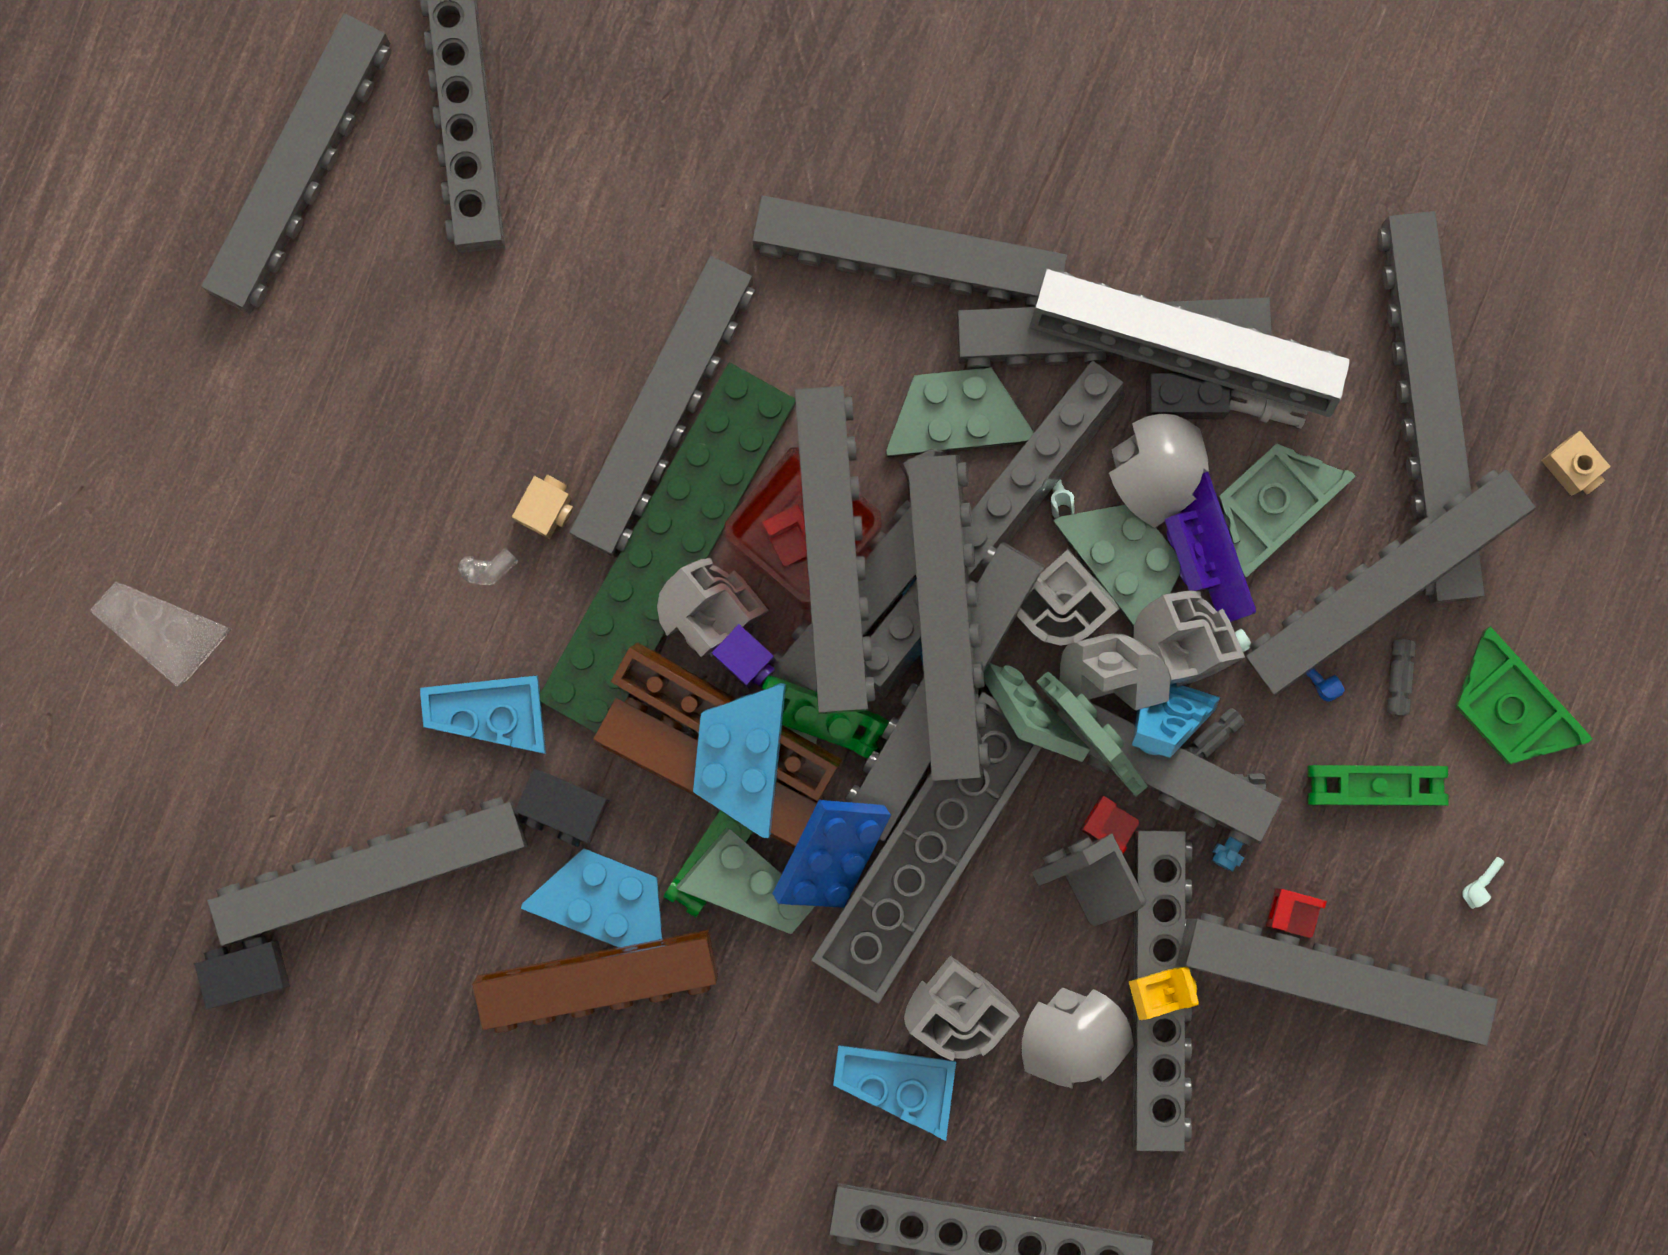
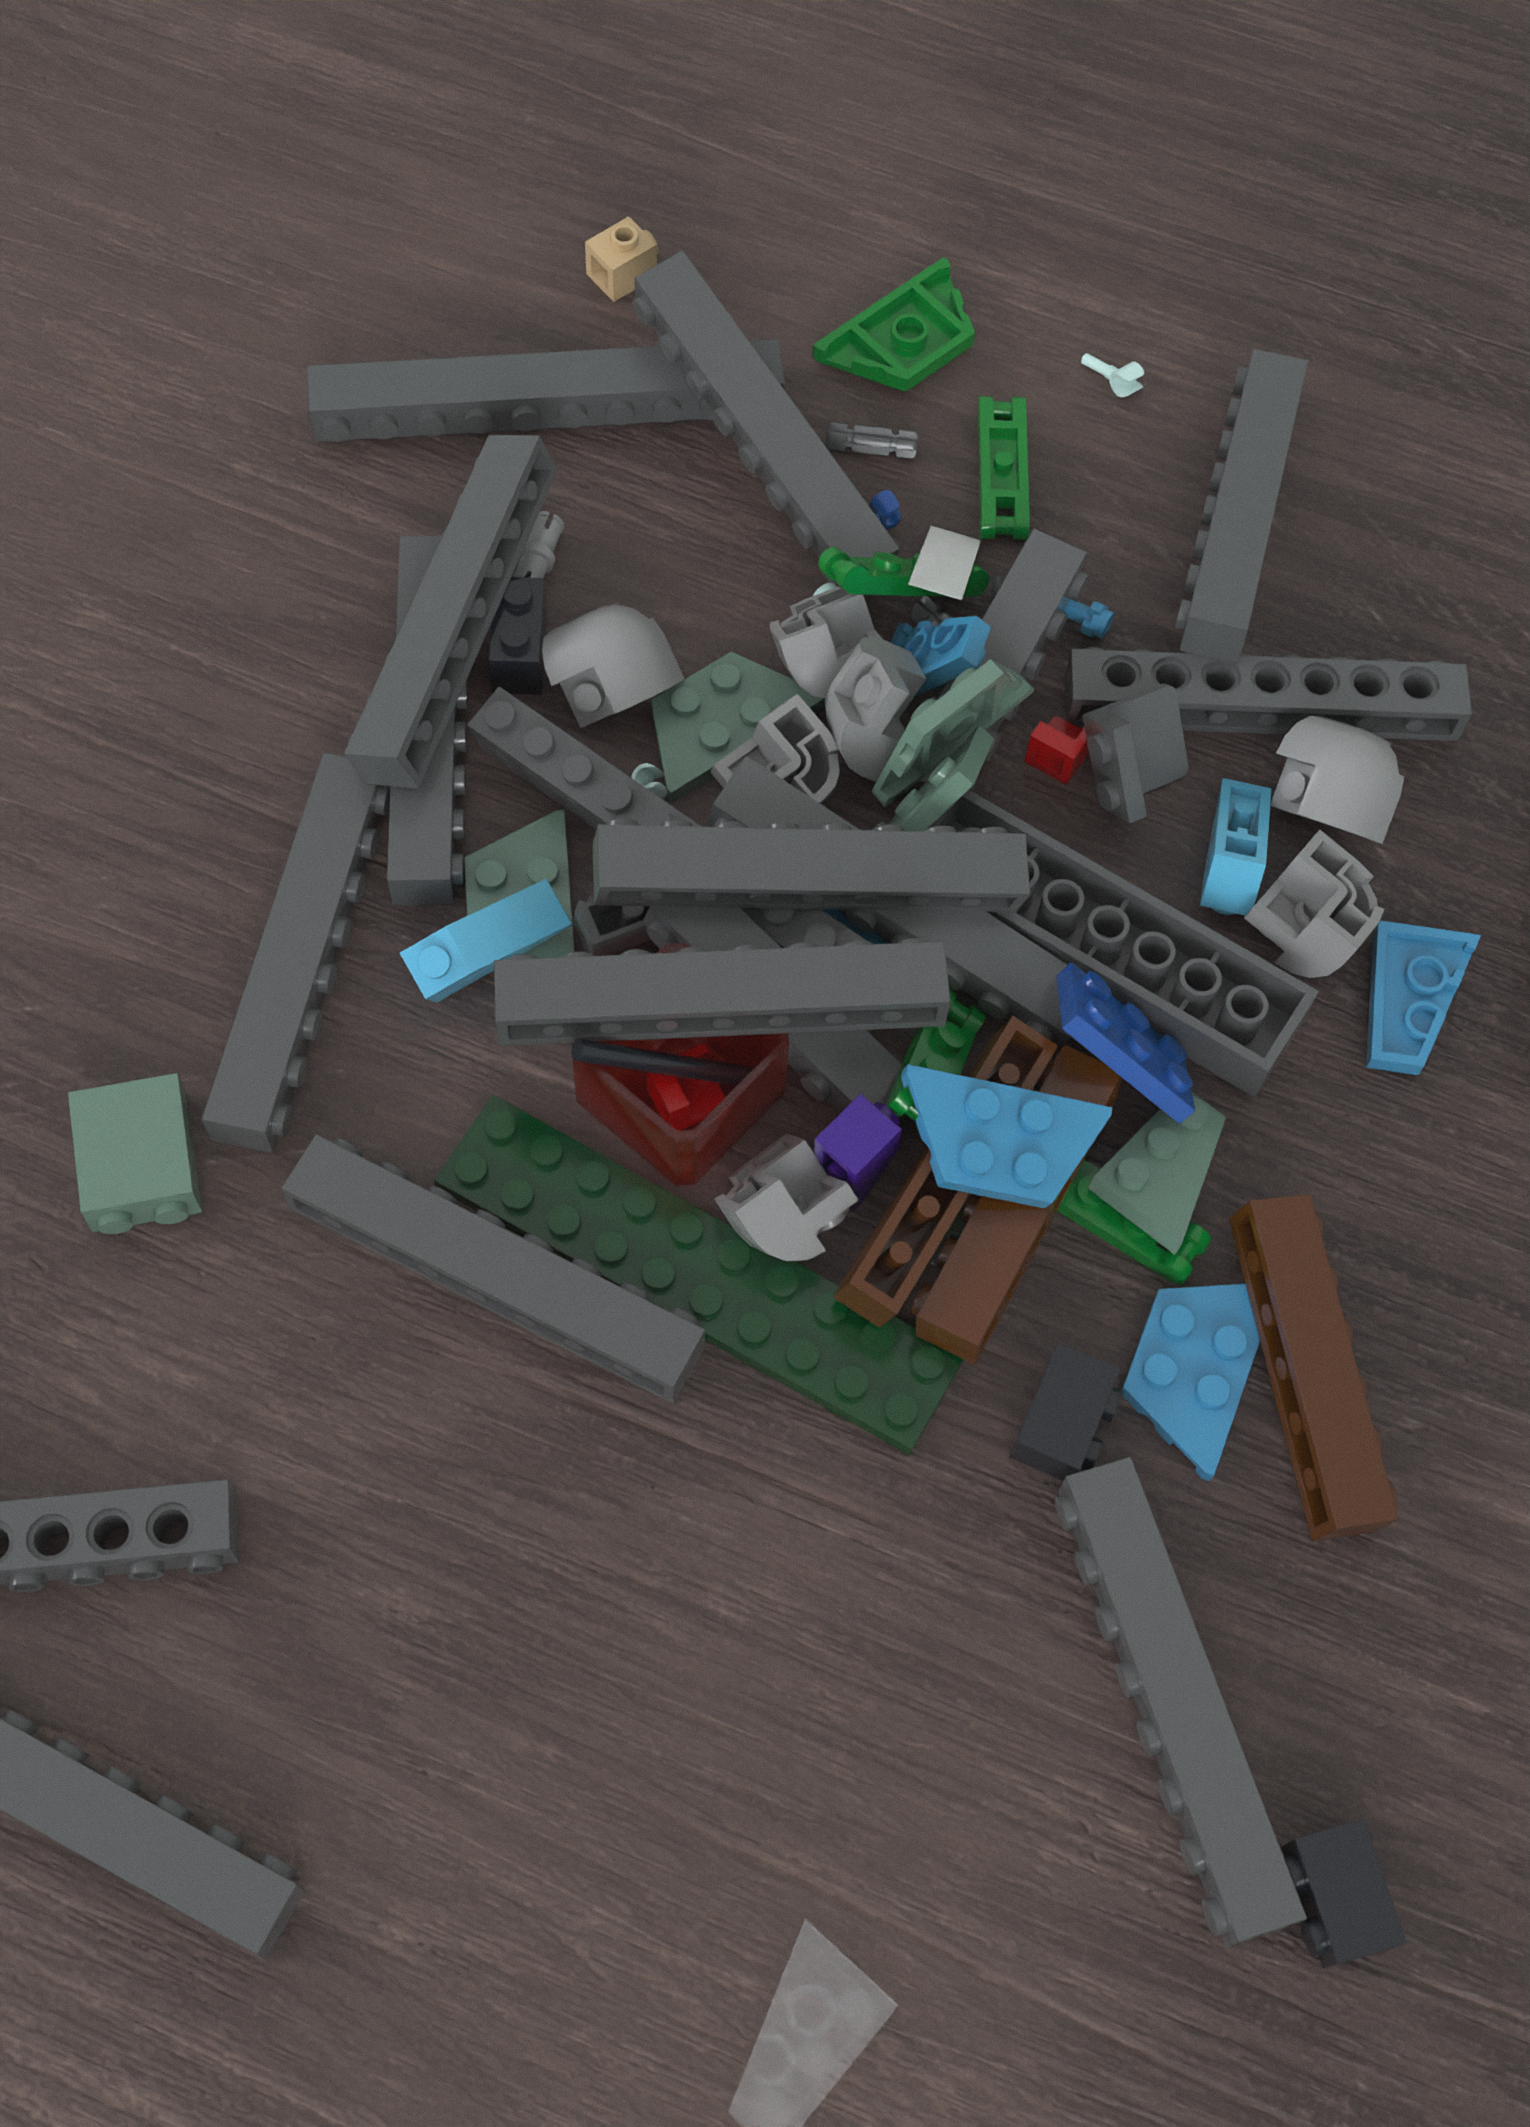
camera: 90 degrees left, 20 degrees down
(486, 571) = (724, 1520): clear arm -> none
(489, 711) = (929, 1519): dark azure wing -> none
(544, 506) = (630, 1433): tan brick -> none
(741, 152) = (134, 1154): none -> sand green brick
(794, 518) = (658, 1062): none -> black bar
(910, 384) = (497, 932): none -> medium azure slope
(1022, 957) = (1237, 848): none -> medium azure slope
(1164, 992) = (1275, 664): yellow bracket -> none
(1208, 553) = (726, 617): dark purple bracket -> none
(1248, 698) = (885, 574): none -> green plate
(1259, 730) = (945, 562): none -> white sticker
(1276, 501) = (657, 554): sand green wing -> none
(1294, 912) = (1158, 558): red panel -> none

